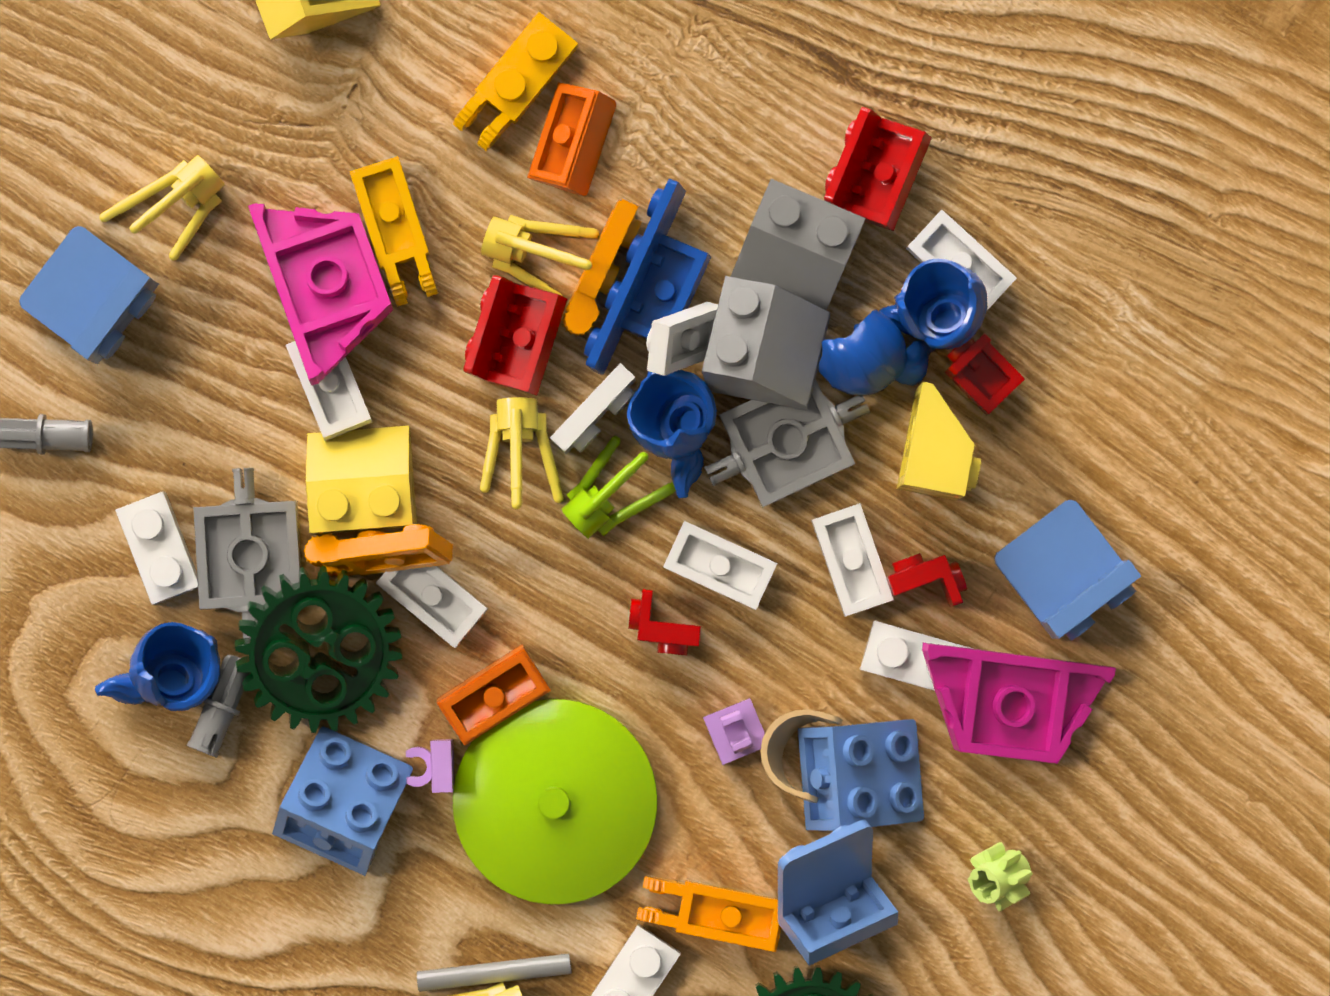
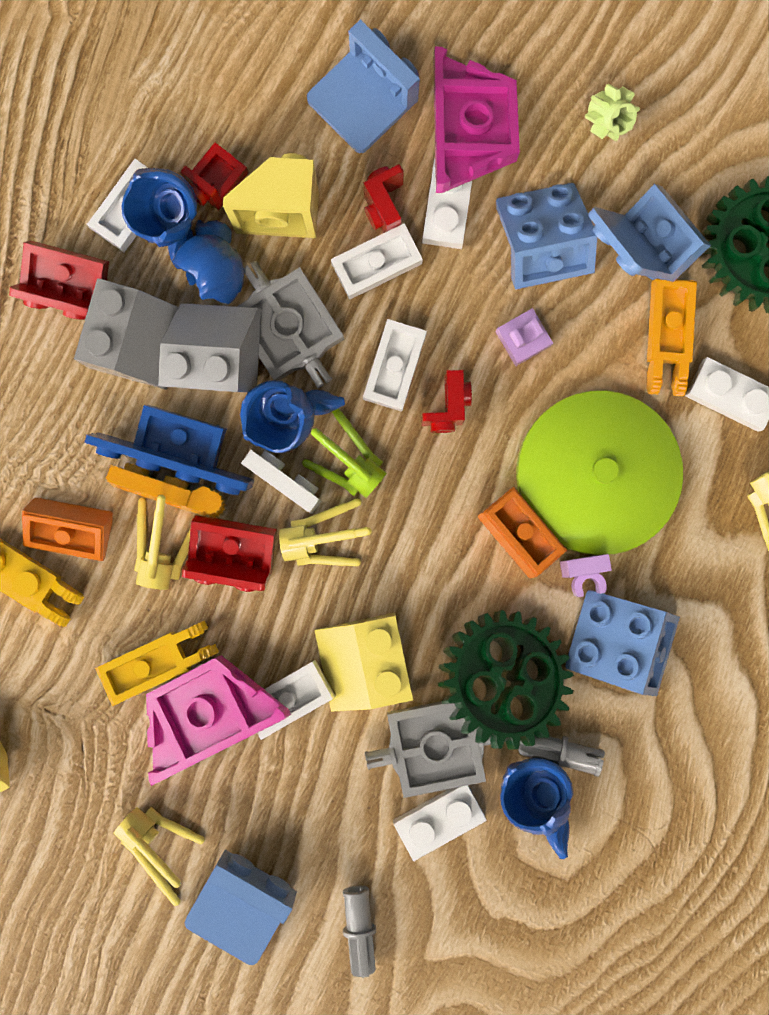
camera: 100 degrees left, 0 degrees up
(379, 552) = (420, 639): light orange hinge -> none
(435, 601) = (449, 592): white plate -> none
(494, 972) = (741, 504): light grey bar -> none
(680, 339) = (214, 414): white plate -> none
(776, 740) = (532, 304): tan helmet -> none

